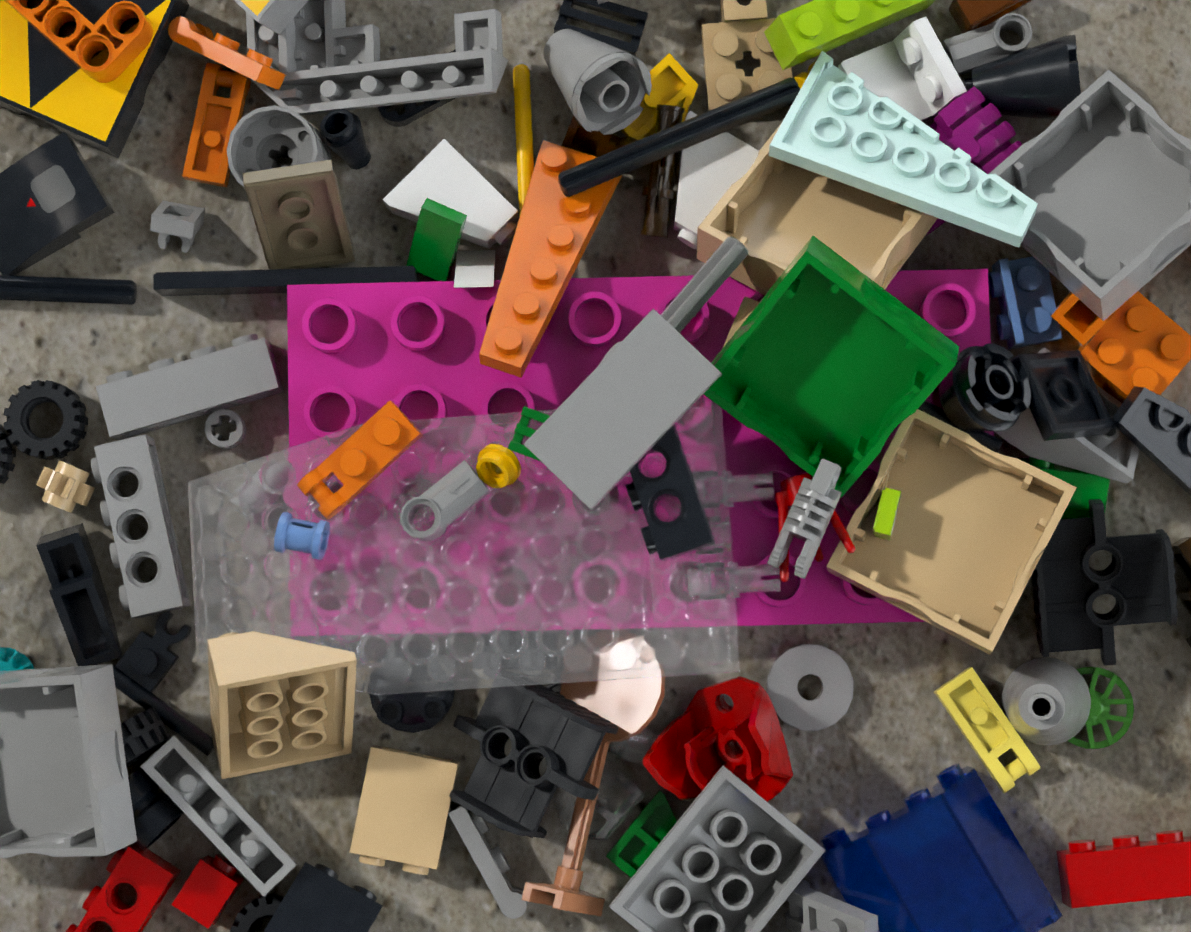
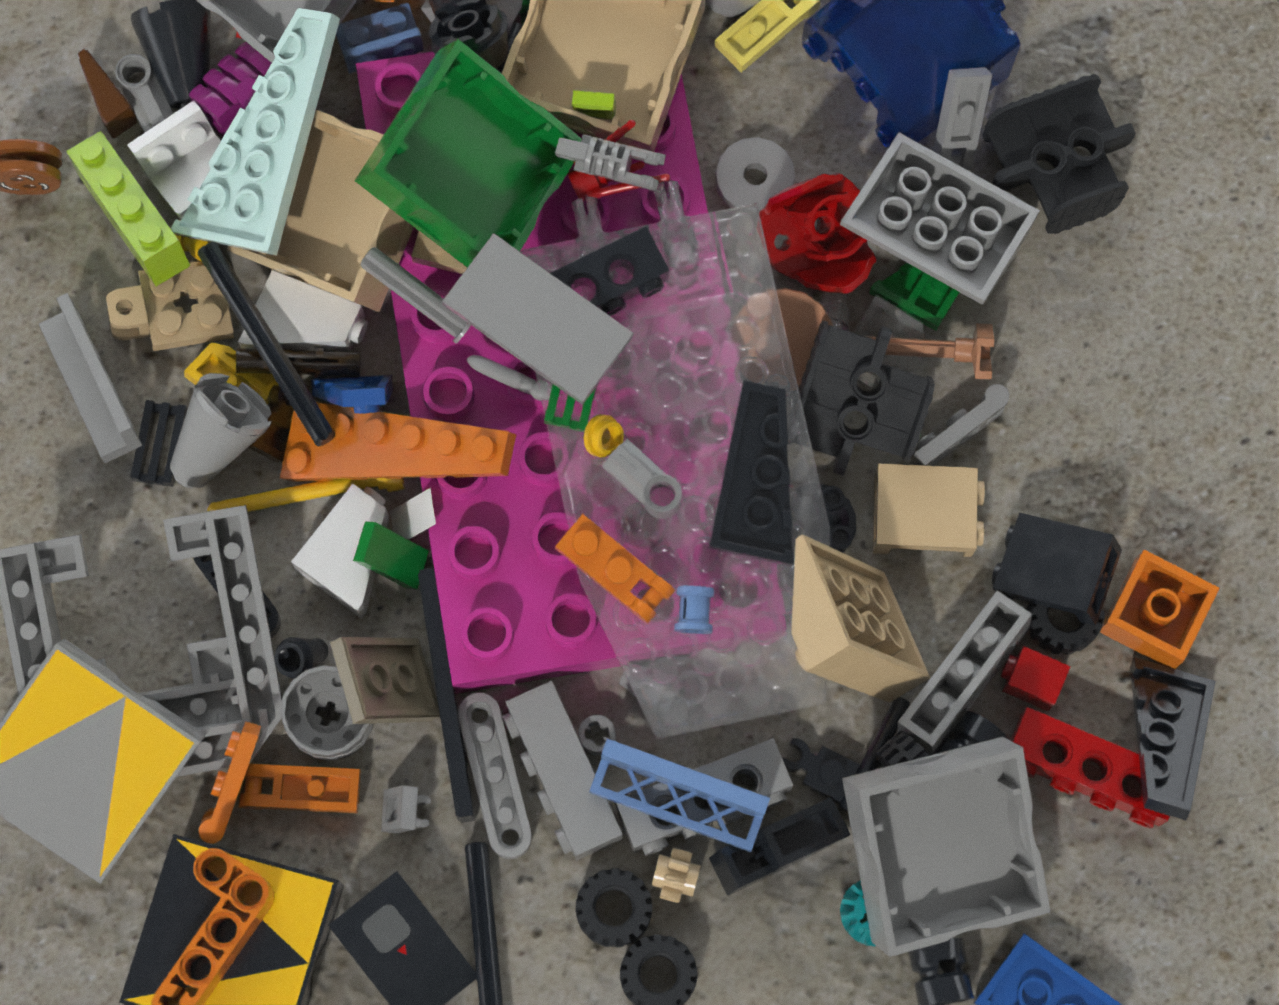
camera: 100 degrees left, 10 degrees down
(144, 503) = (684, 779): none -> medium blue fence
(197, 319) = (494, 775): none -> light grey plate
(422, 620) = (754, 492): none -> black wing
(612, 226) = (361, 392): none -> blue wing

